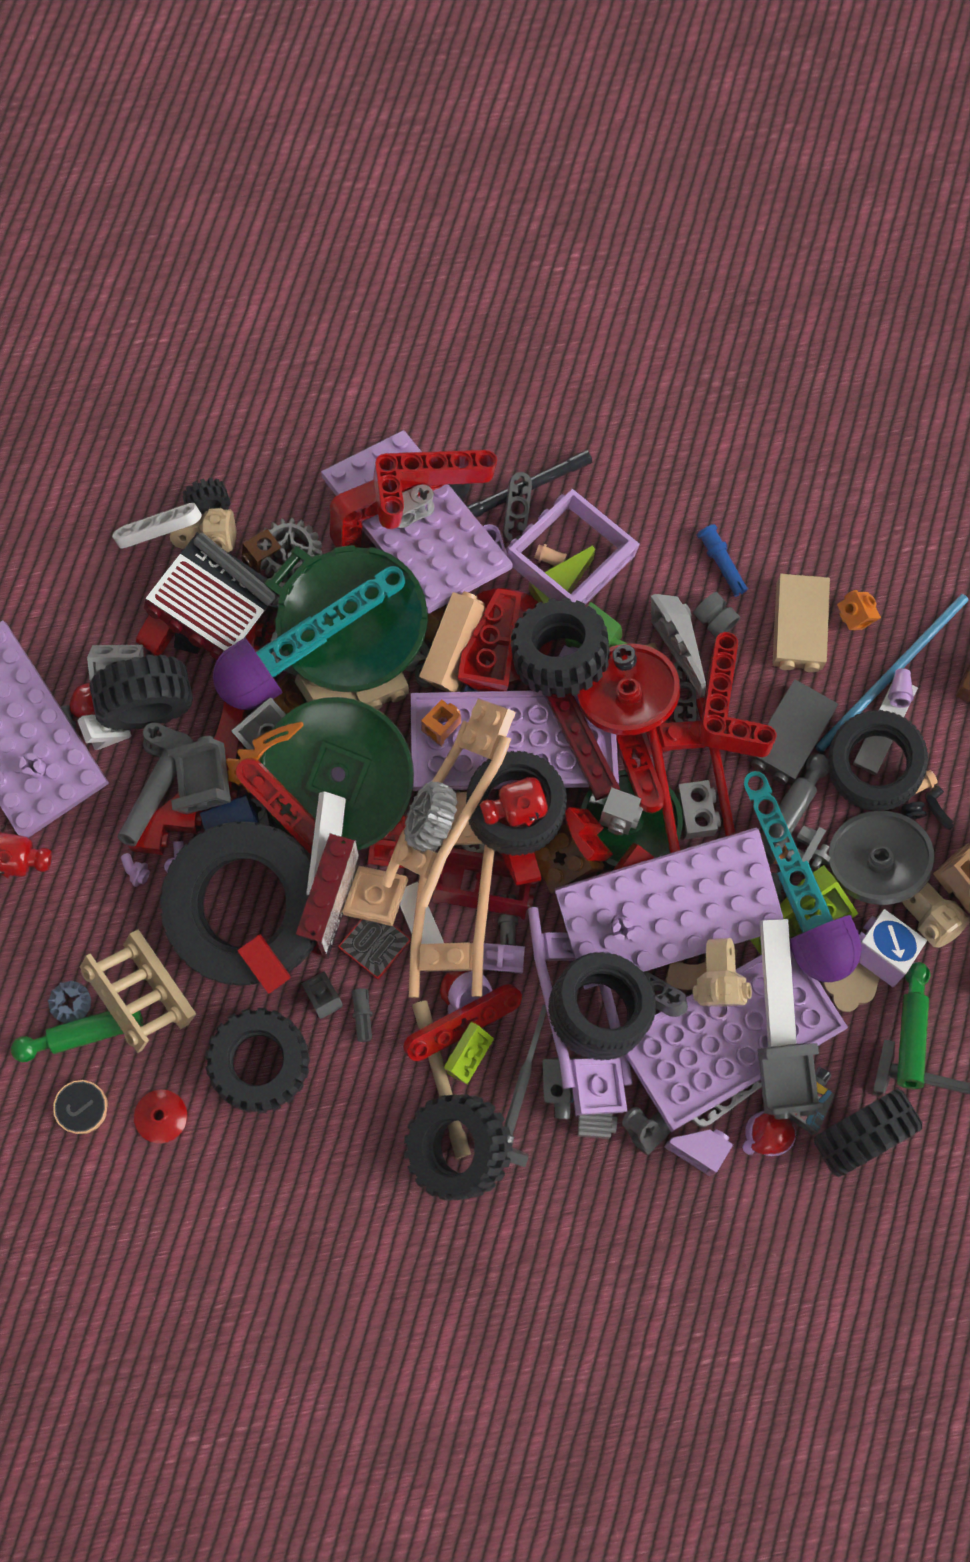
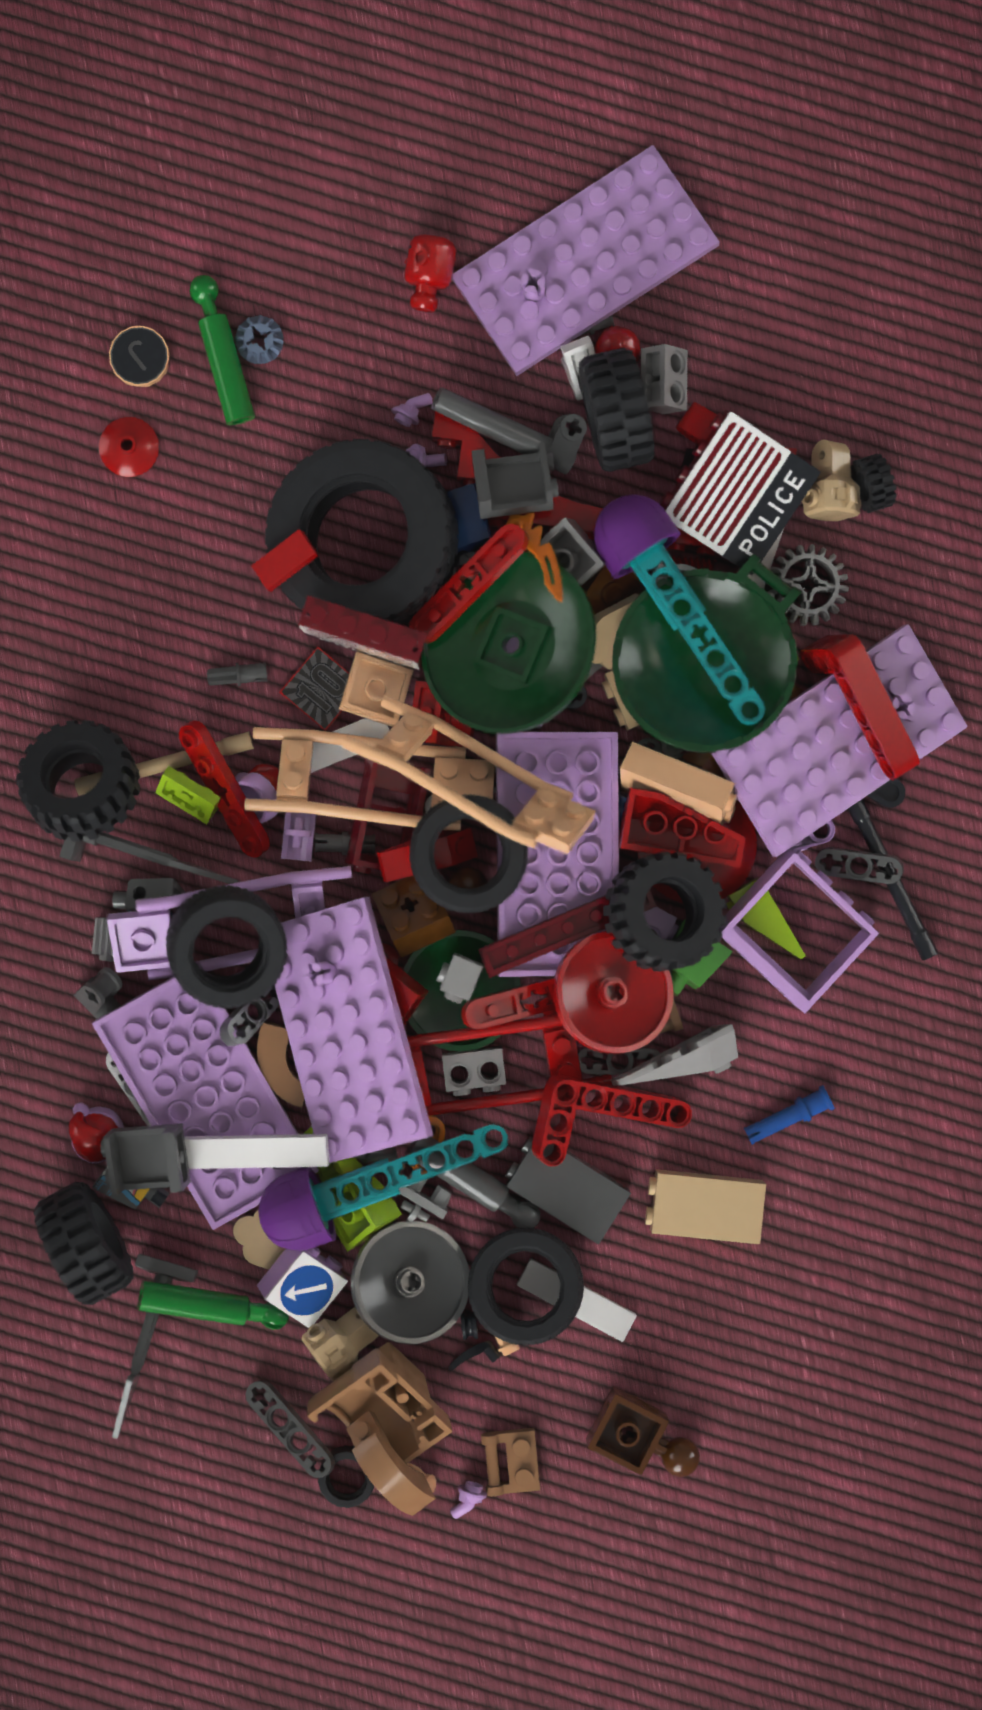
camera: 90 degrees right, 15 degrees up
(149, 969) = (291, 430): tan fence -> none
(157, 525) = (843, 452): white beam -> none
(232, 1035) = (150, 531): black tyre -> none
(235, 569) = (772, 518): dark grey axle -> none
(253, 555) = (797, 541): reddish brown bracket -> none
(322, 995) = (260, 628): dark grey slope -> none
(328, 820) = (440, 631): white tile -> none
(415, 507) = (848, 729): light grey piece -> none
(424, 473) = (887, 749): red beam -> none
(430, 816) = (449, 752): light grey gear -> none
(441, 713) = (588, 768): orange brick -> none
(518, 802) = (456, 854): red piece -> none
(549, 555) = (797, 904): light nougat pin -> none
(584, 831) = (434, 933): red slope -> none
(624, 664) = (658, 996): black bush -> none
(702, 1149) = (75, 1055): lavender slope -> none
(714, 612) = (716, 1104): dark grey wheel -> none
(721, 983) = (254, 1087): tan piece -> none
(858, 610) = (720, 1276): orange brick -> none
(871, 694) = (644, 1313): dark azure piece -> none
(901, 689) = (618, 1321): lavender cone -> none

